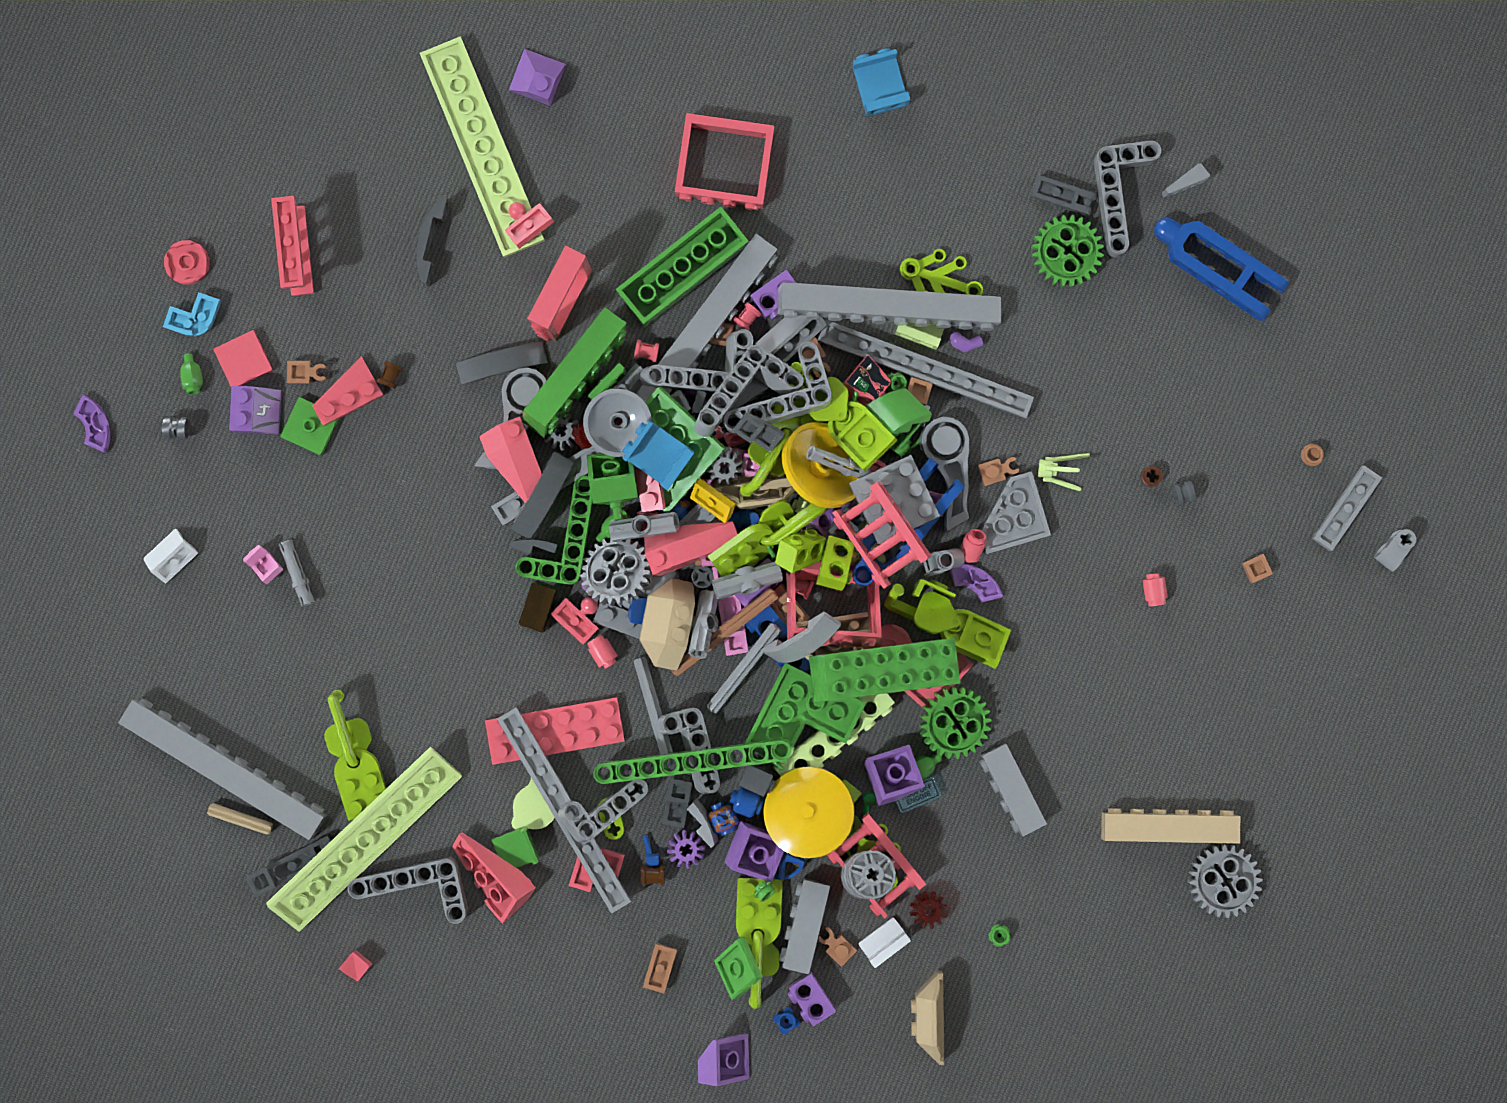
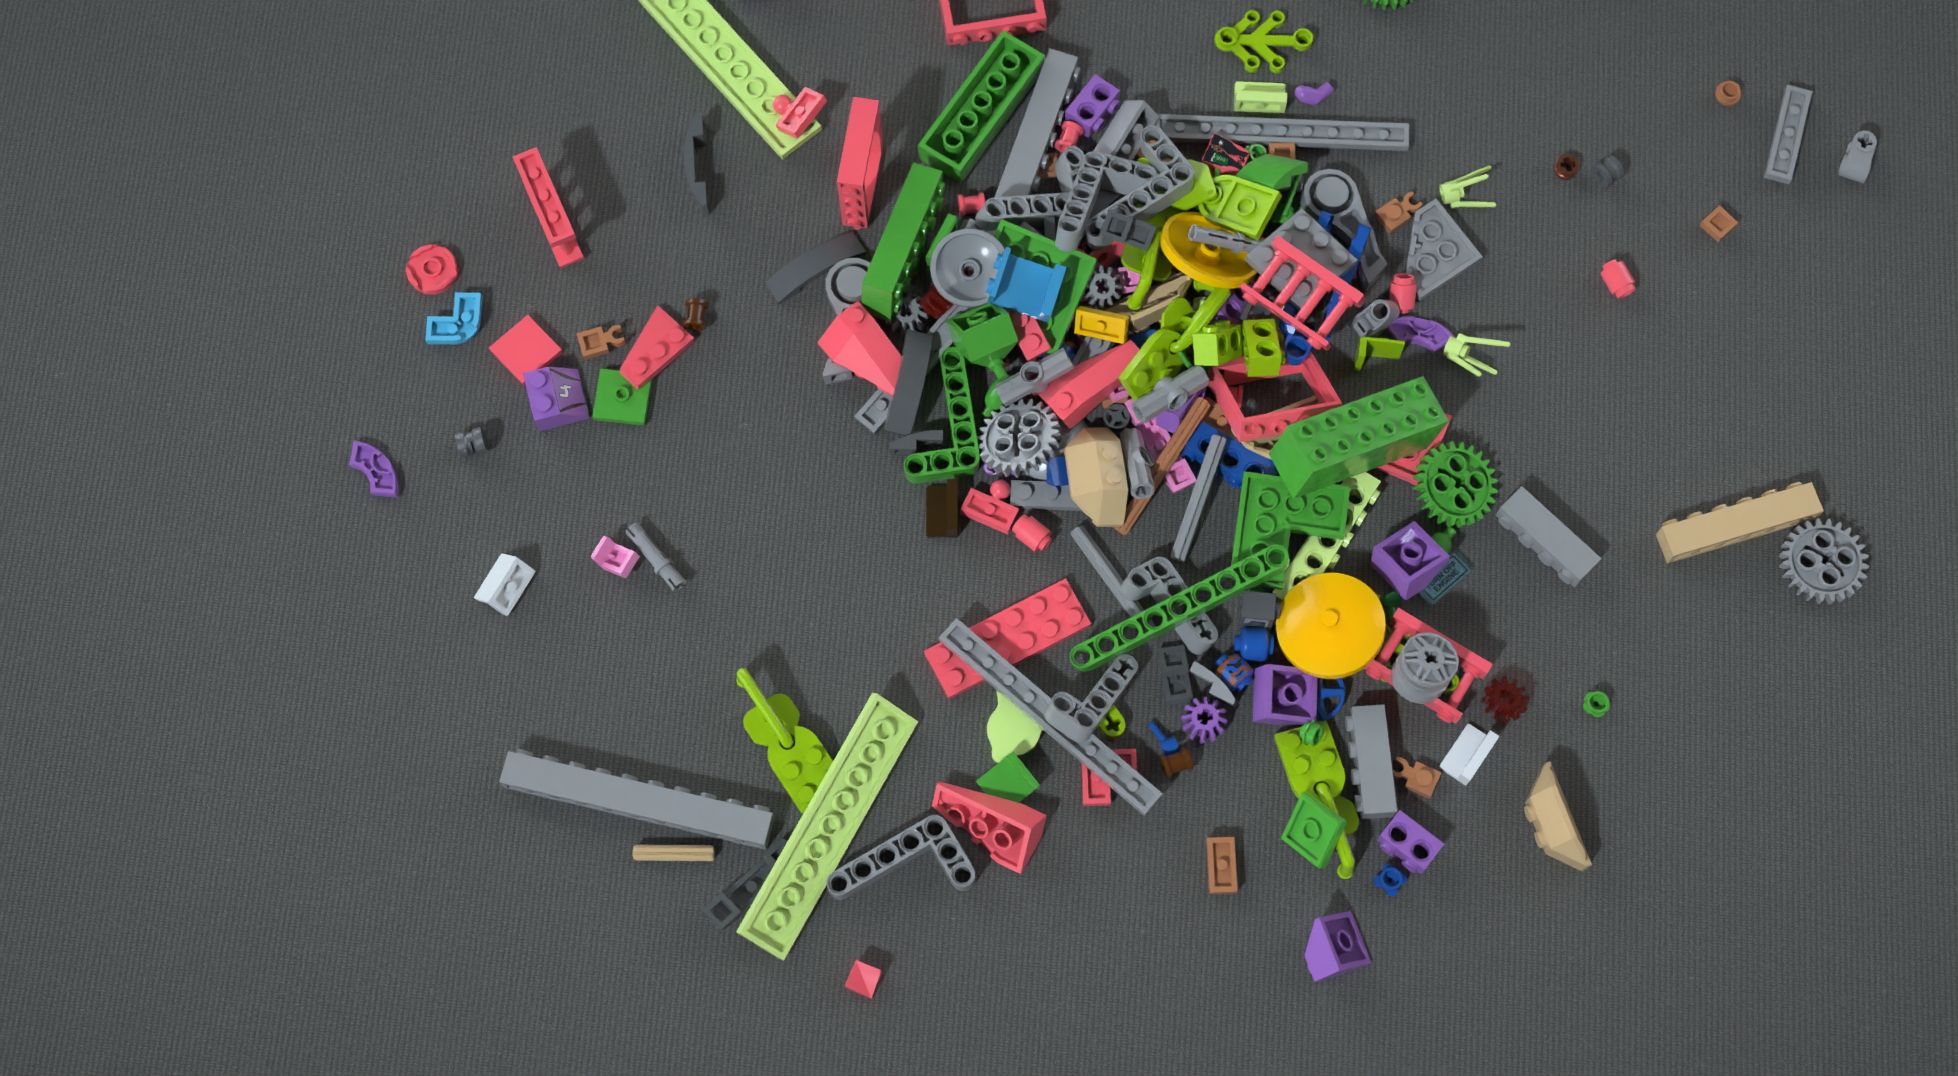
camera: 15 degrees left, 15 degrees down
(191, 375) = (471, 384): bright green plant -> none
(818, 632) = (1258, 433): light grey slope -> none
(889, 305) = (1218, 73): light grey brick -> none
(973, 634) = (1449, 384): lime plate -> none
(1000, 610) = (1458, 350): none -> yellowish green plant

